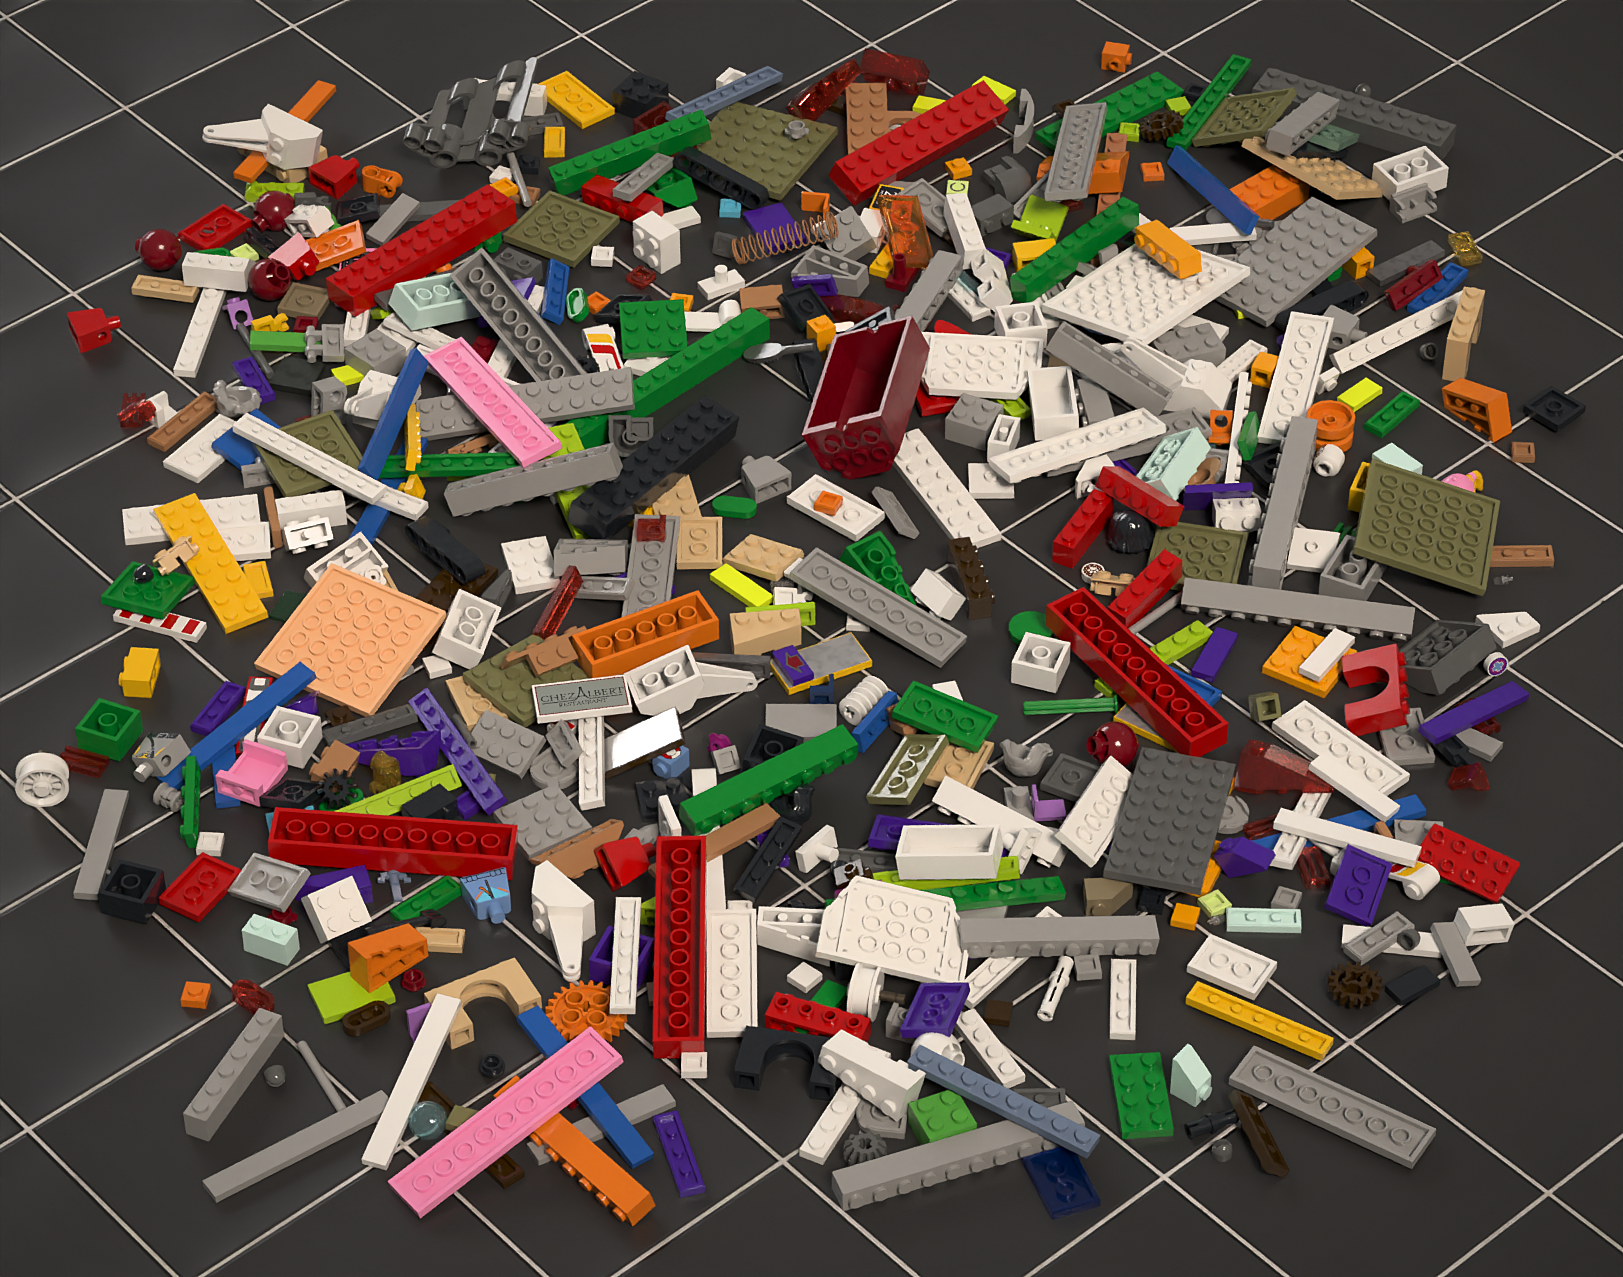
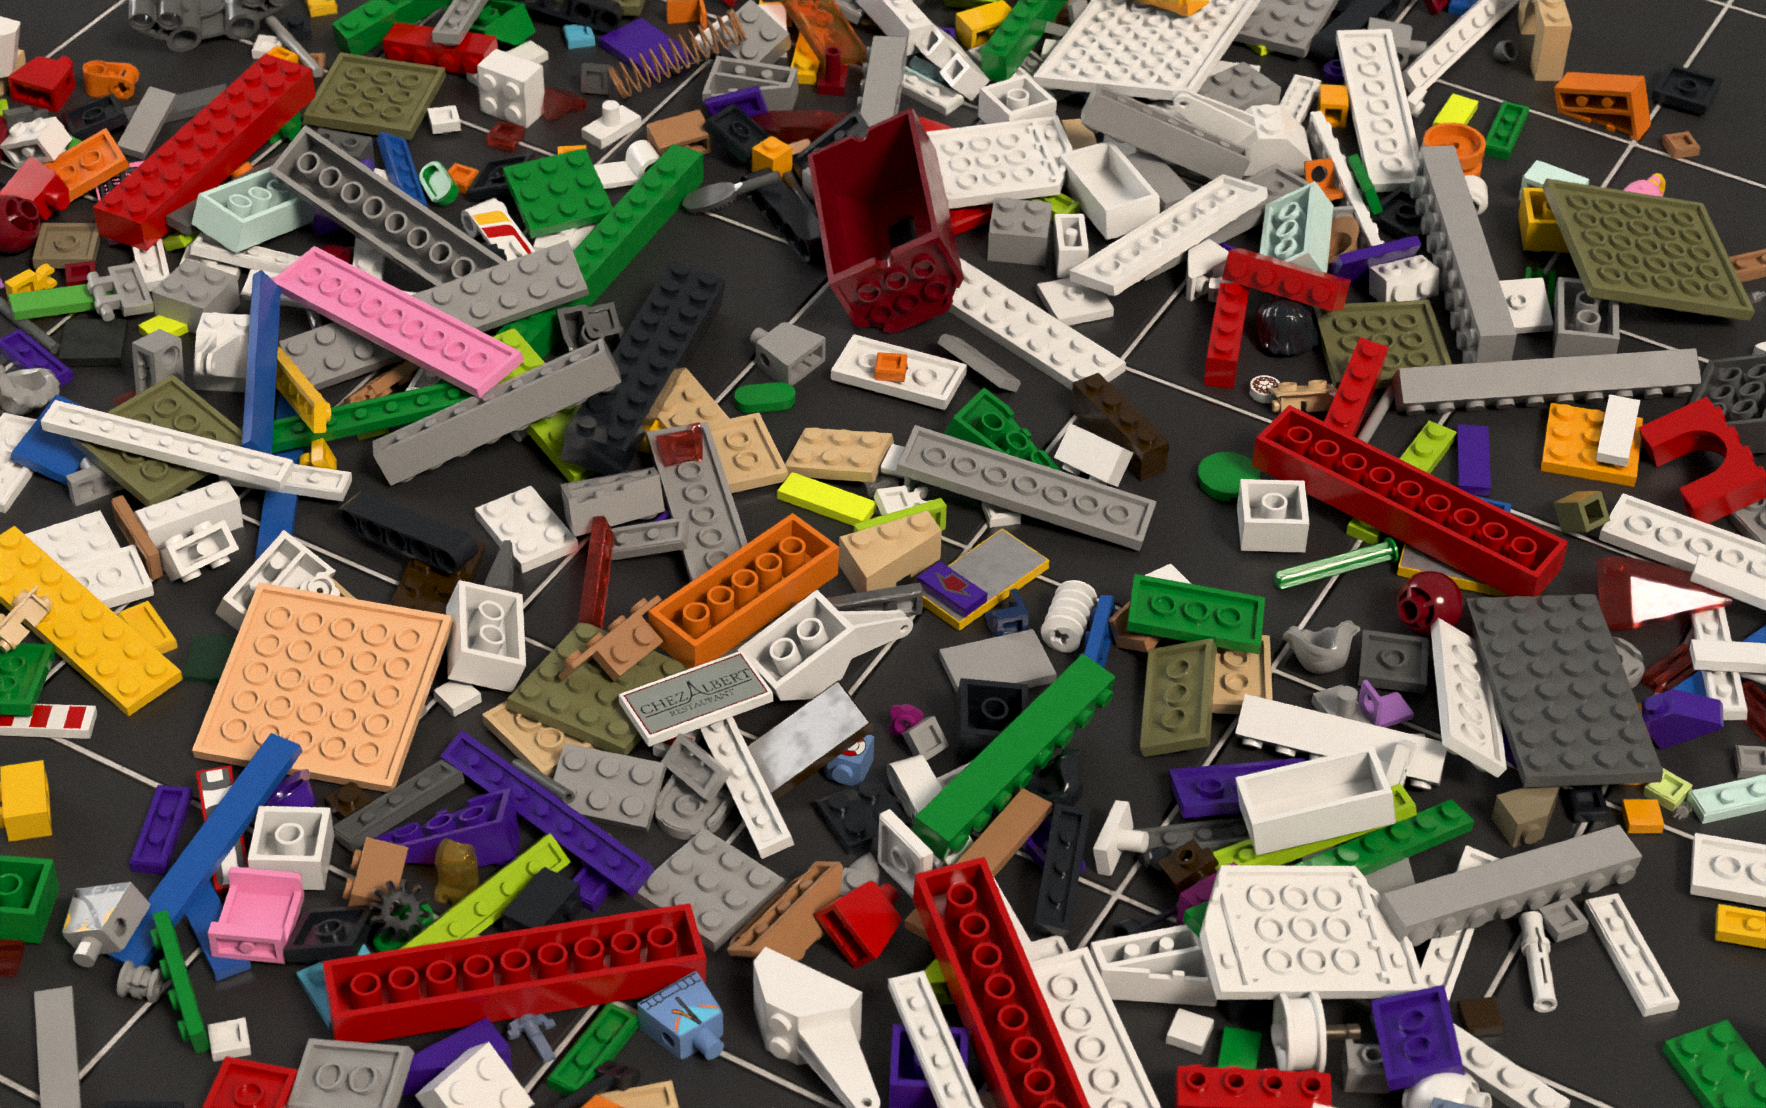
camera: 20 degrees left, 0 degrees up
(690, 257) = (559, 101): none -> clear red tile

